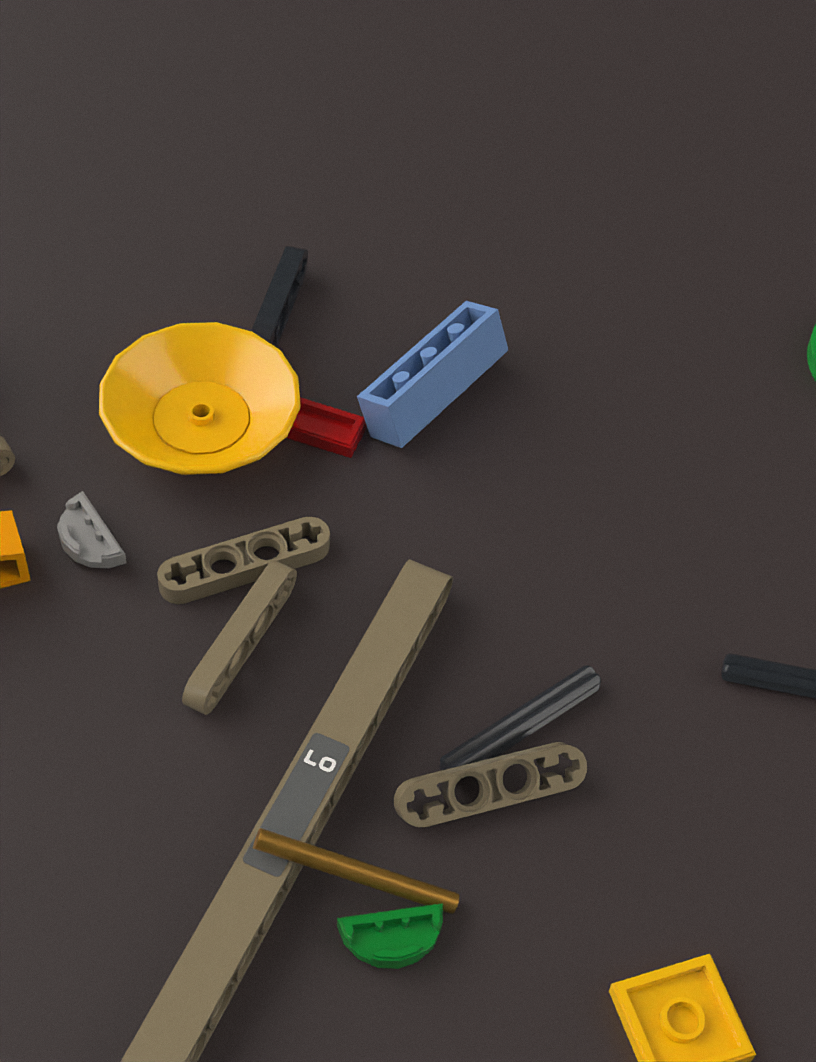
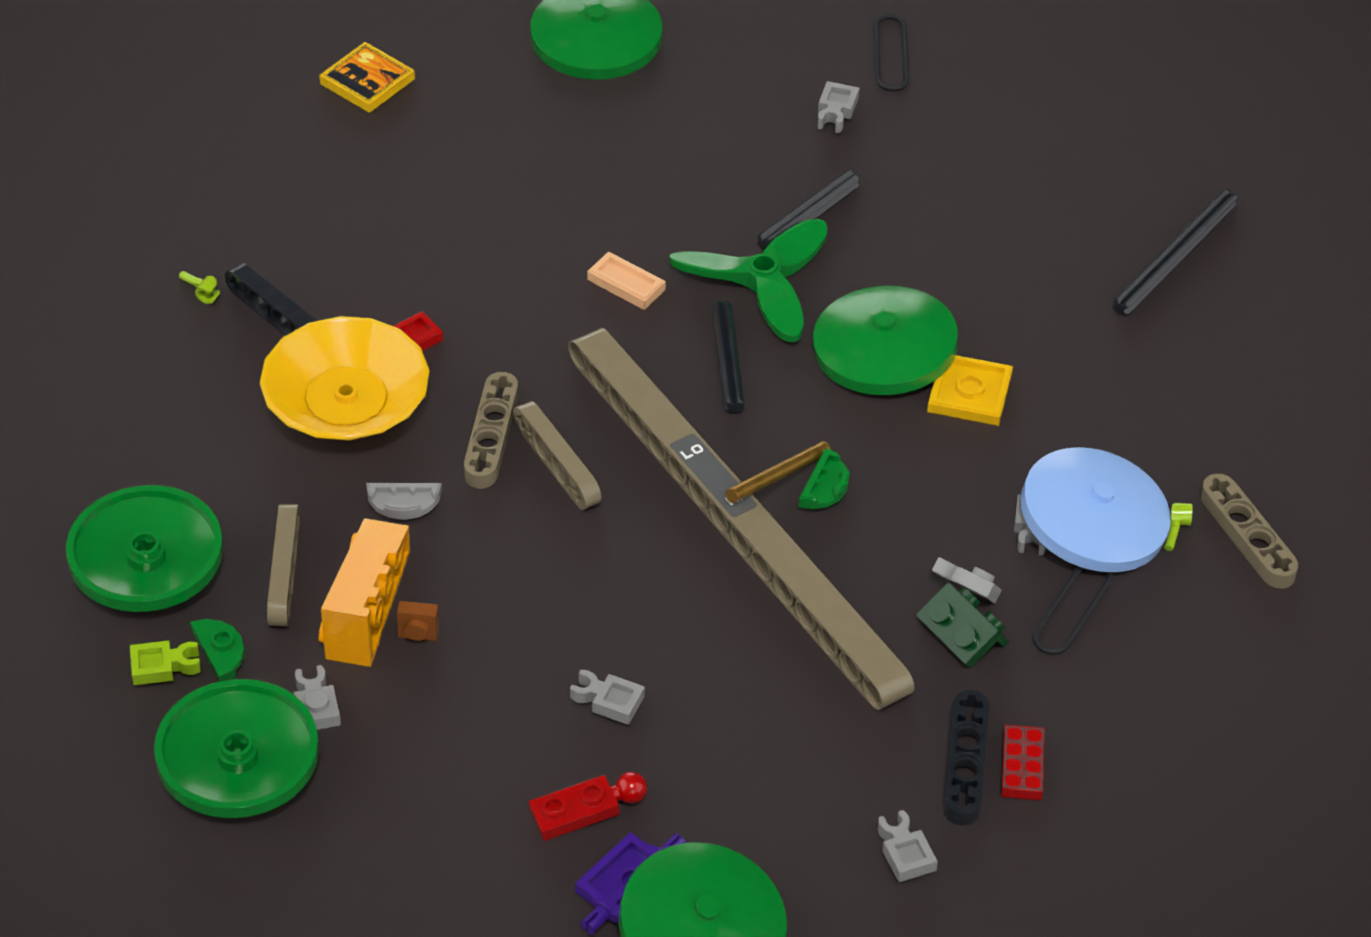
camera: 55 degrees left, 5 degrees down
(269, 248) = (205, 288): none -> lime hand
(433, 373) = (422, 252): medium blue brick -> none
(491, 788) = (757, 384): dark tan beam -> none
(560, 568) = (626, 280): none -> light nougat tile
(648, 224) = (367, 77): none -> tile
(677, 879) = (885, 340): none -> green dish
(711, 695) = (766, 273): none -> green piece

